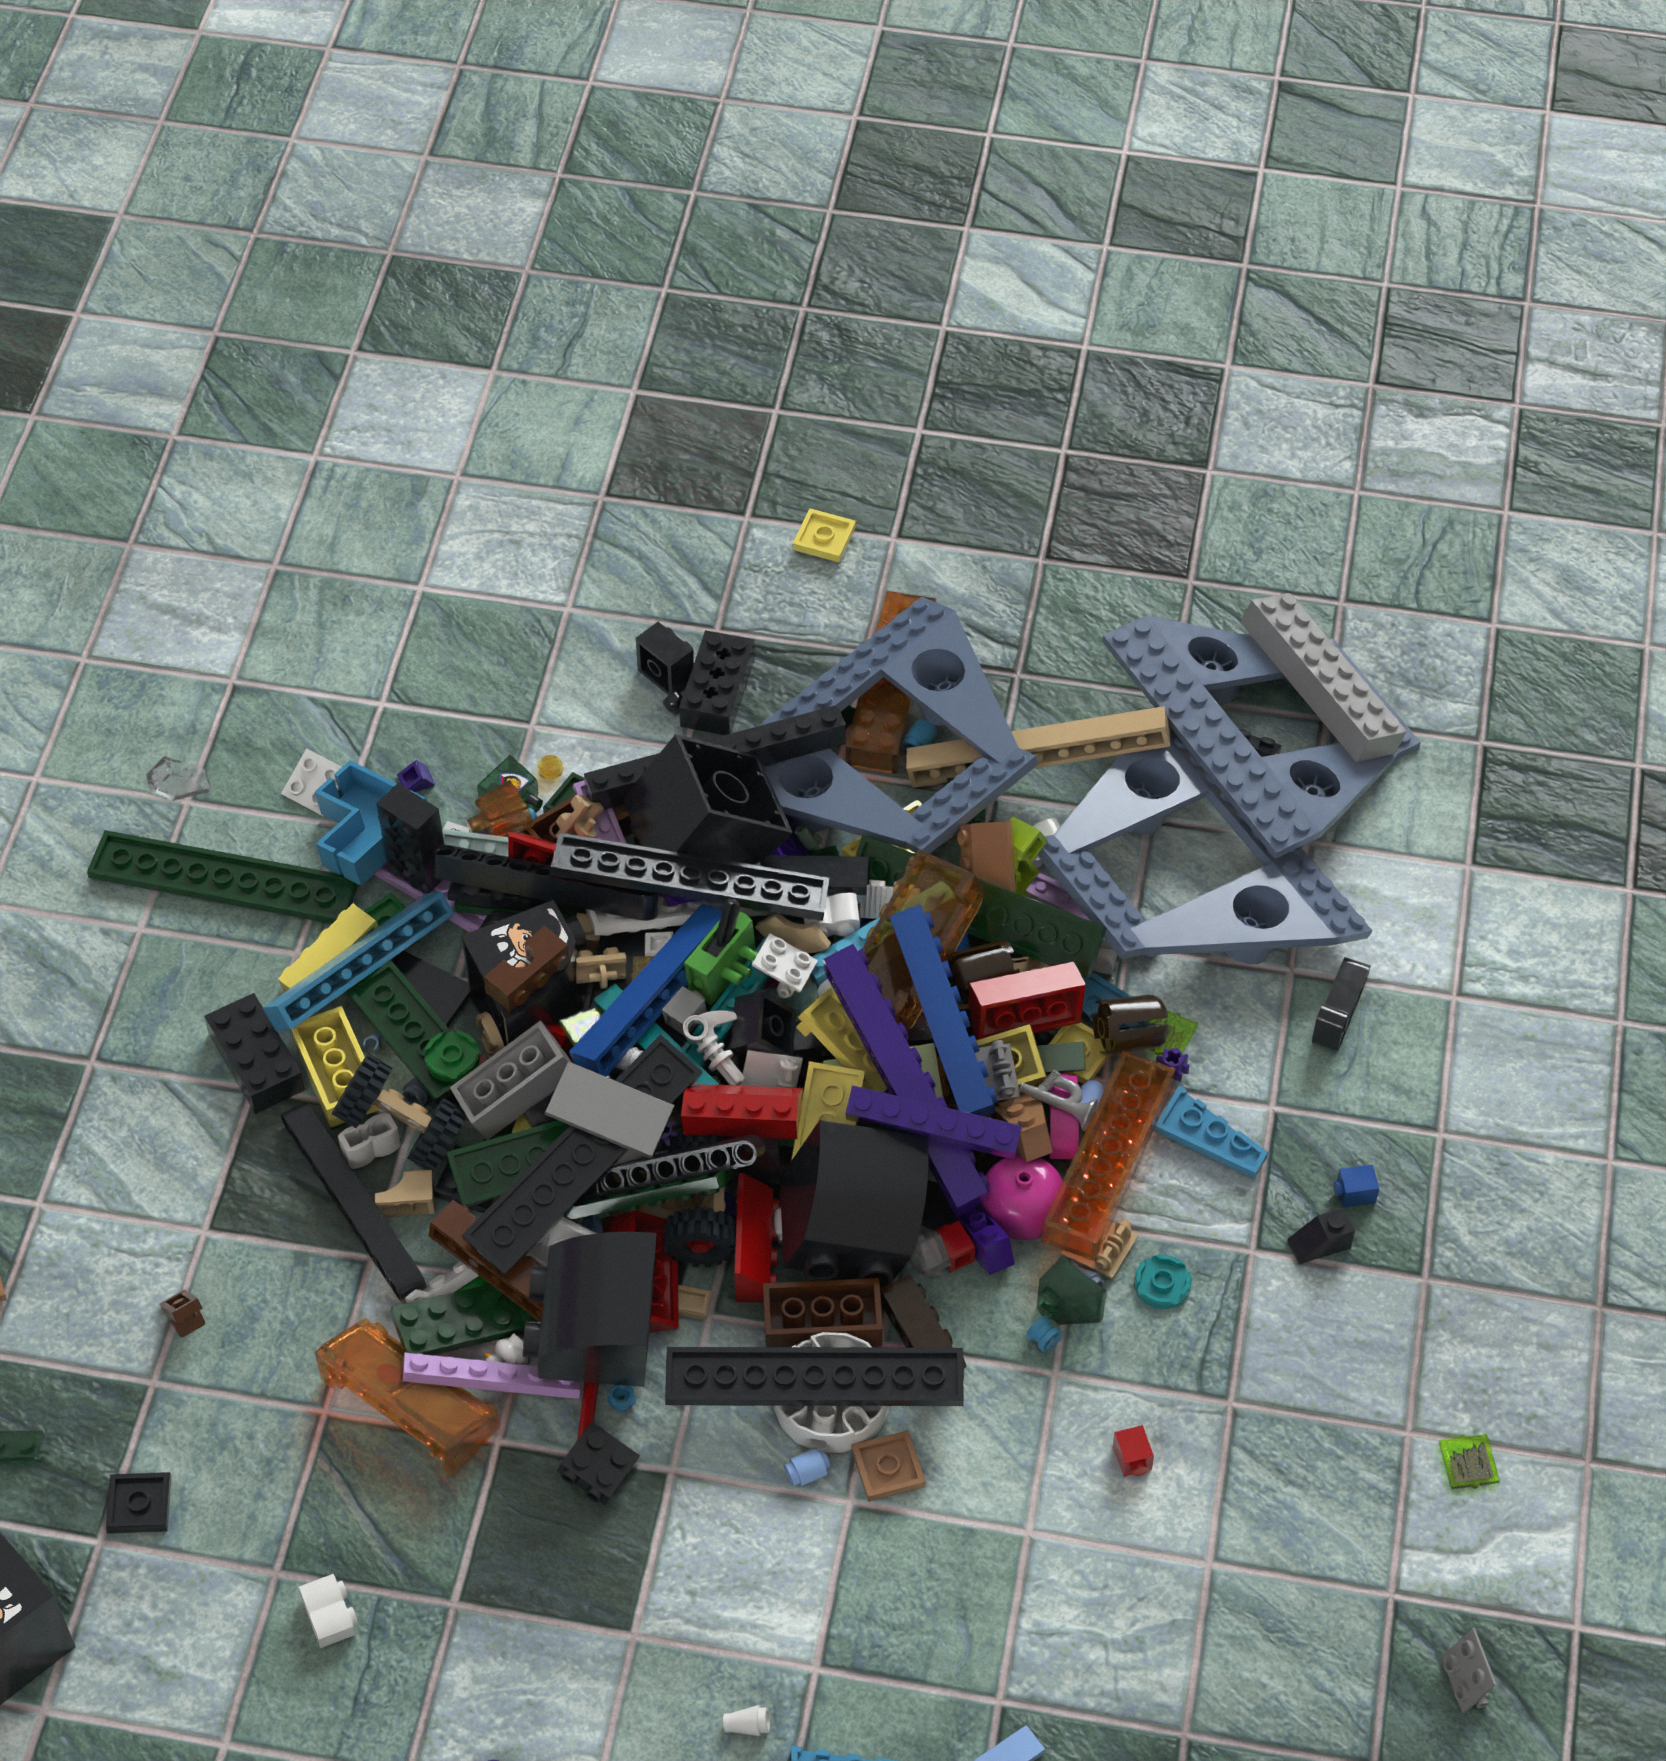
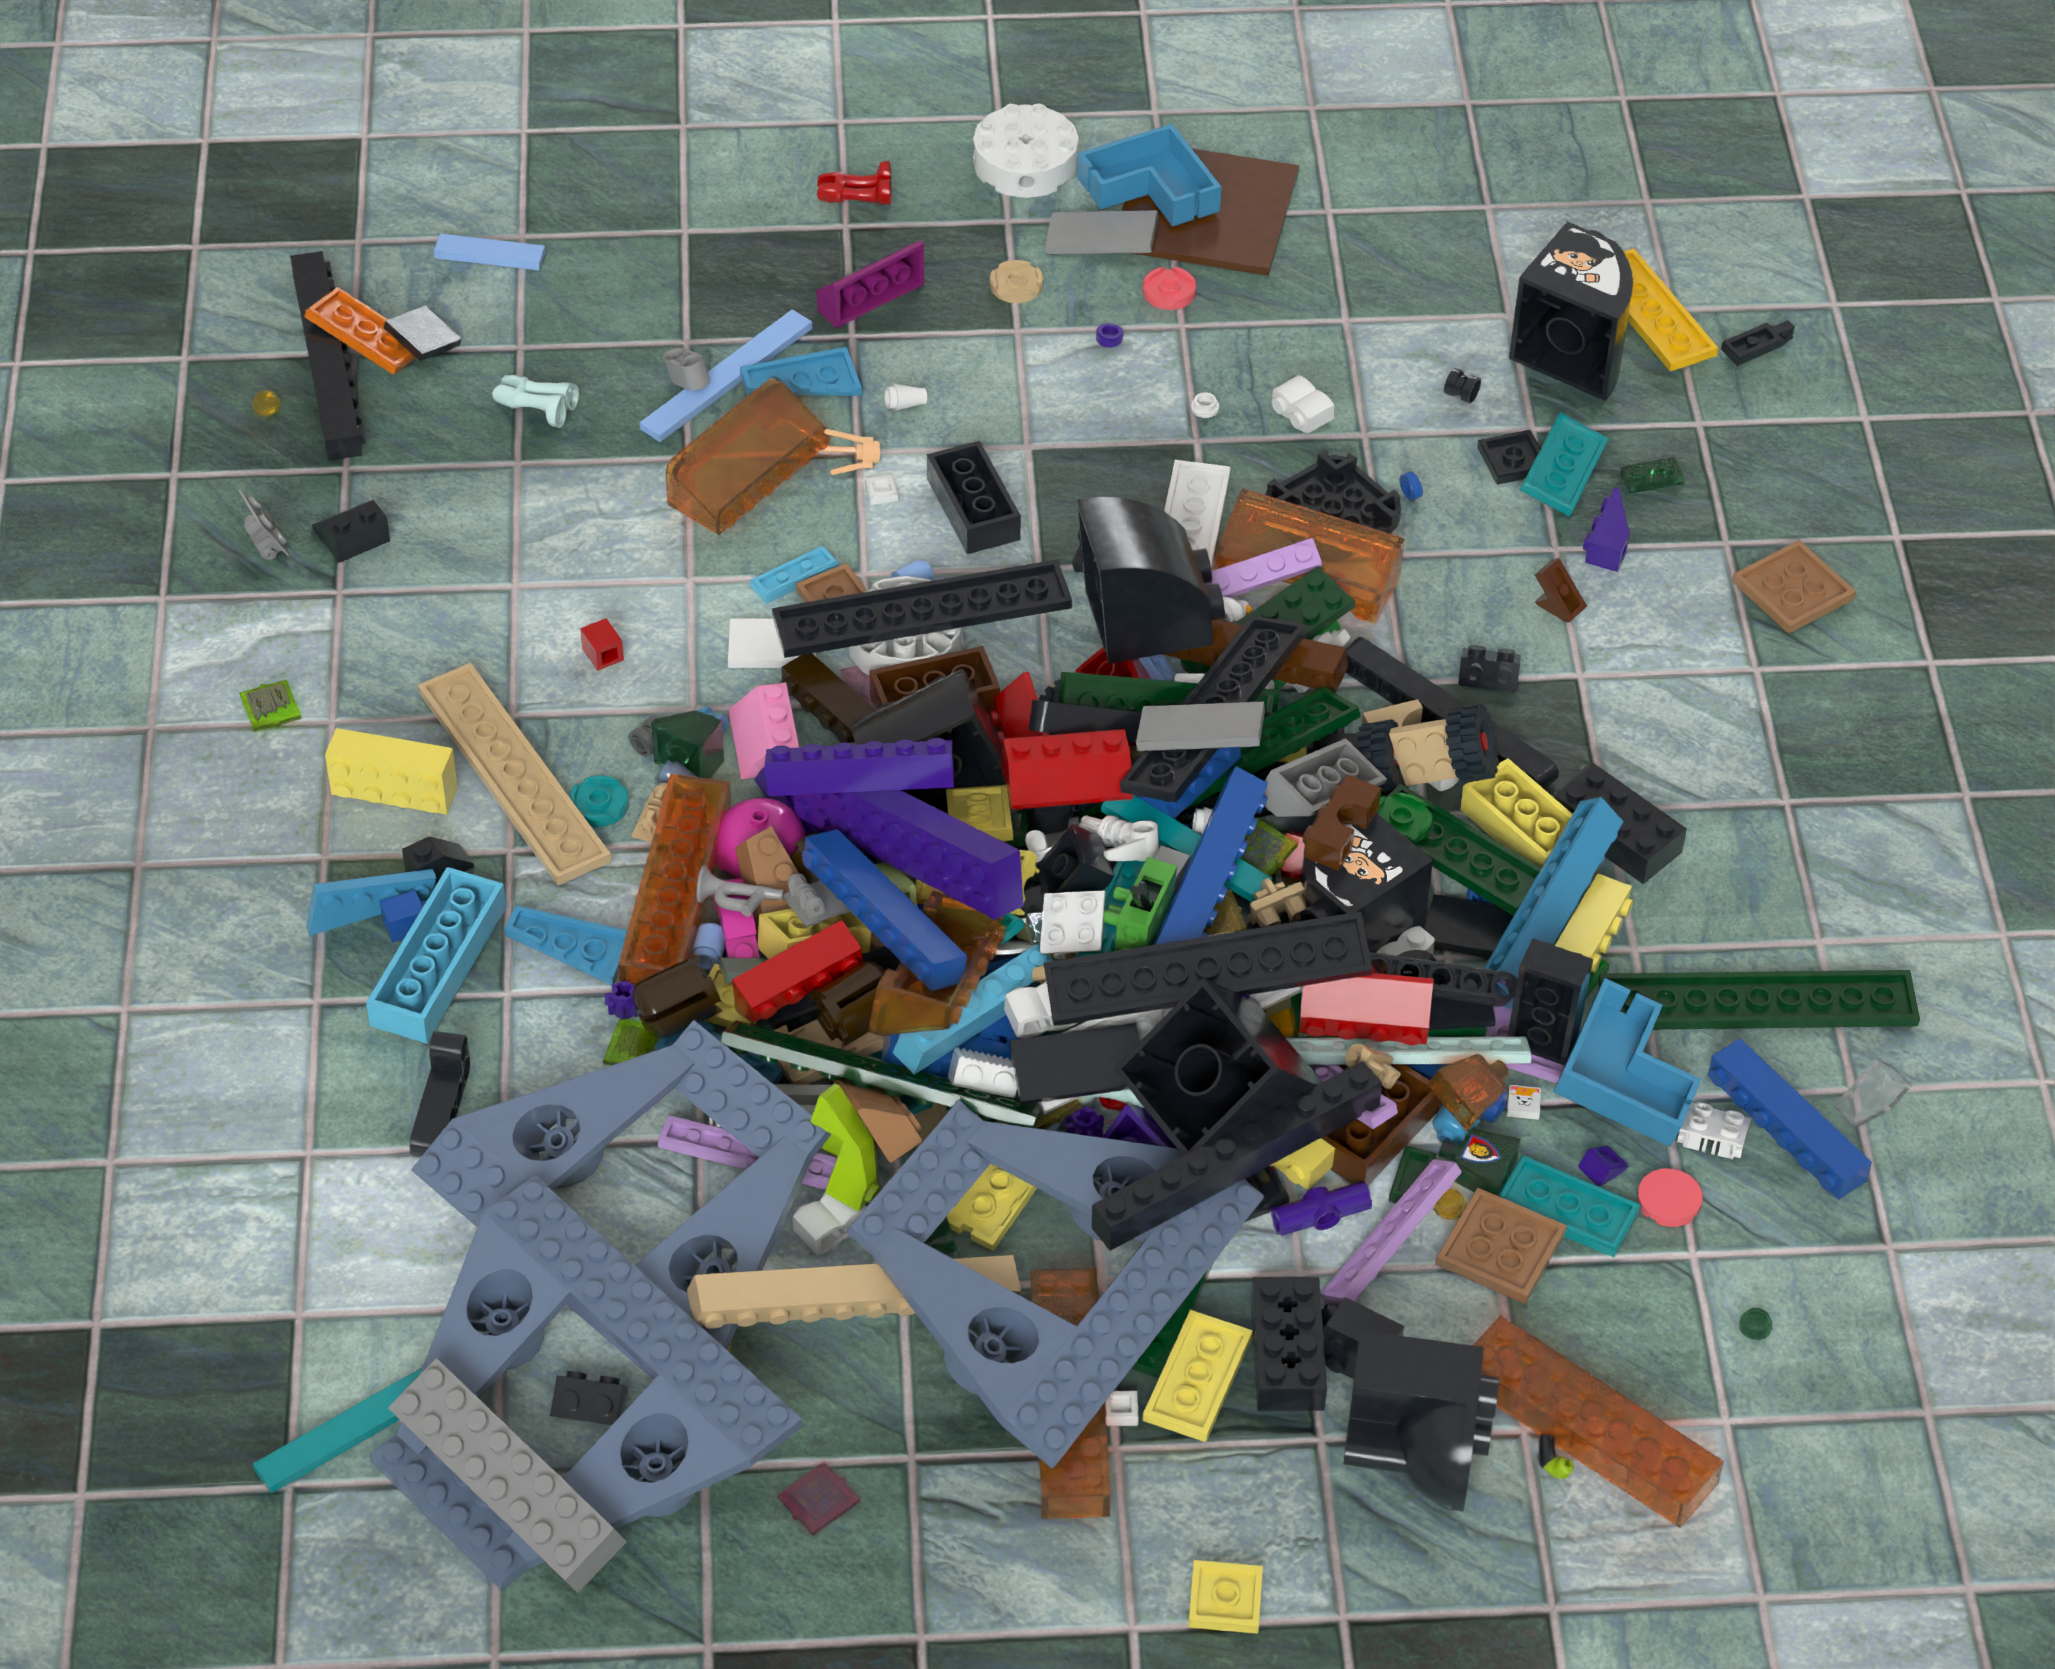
camera: 165 degrees right, 5 degrees down
(94, 1472) = (1564, 464): none -> teal tile
(97, 1368) = (1610, 535): none -> dark purple slope
(148, 1599) = (1462, 385): none -> black wheel
(255, 775) = (1789, 1119): none -> blue brick
(263, 1475) = (1411, 486): none -> blue tile
(285, 1247) = (1489, 668): none -> black bracket
(352, 1473) = (1340, 490): none -> black tile
(365, 638) = (1755, 1324): none -> clear green plate
(378, 742) = (1669, 1197): none -> coral tile
(426, 1632) = (1205, 405): none -> white plate
(454, 750) = (1590, 1212): none -> teal tile
(504, 1477) = (1198, 501): none -> white plate
(522, 591) = (1598, 1424): none -> clear orange brick
(525, 726) = (1501, 1245): none -> medium nougat plate
(559, 578) = (1550, 1462): none -> arm
(606, 743) = (1391, 1232): none -> lavender plate
(651, 575) = (1420, 1412): none -> black piece
(717, 1547) = (973, 497): none -> black brick
(788, 675) = (1197, 1376): none -> light yellow plate
(804, 1603) = (881, 489): none -> white tile
(810, 1649) = (866, 451): none -> light nougat plant
(921, 1510) = (783, 578): none -> medium azure tile
(936, 1655) = (744, 457): none -> clear orange windscreen
(968, 1430) = (755, 644): none -> white tile
(994, 1313) = (760, 723): none -> bright pink slope
(1091, 659) = (818, 1498): none -> clear pink piece
(1104, 1332) = (641, 737): none -> dark grey wheel
(1241, 1326) = (514, 774): none -> tan plate
(1331, 1132) = (436, 955): none -> medium azure brick
(1357, 1324) = (391, 771): none -> light yellow brick
(1375, 1664) = (354, 530): none -> black slope
(1397, 1197) = (358, 899): none -> dark azure wing
(1437, 767) = (331, 1437): none -> teal tile

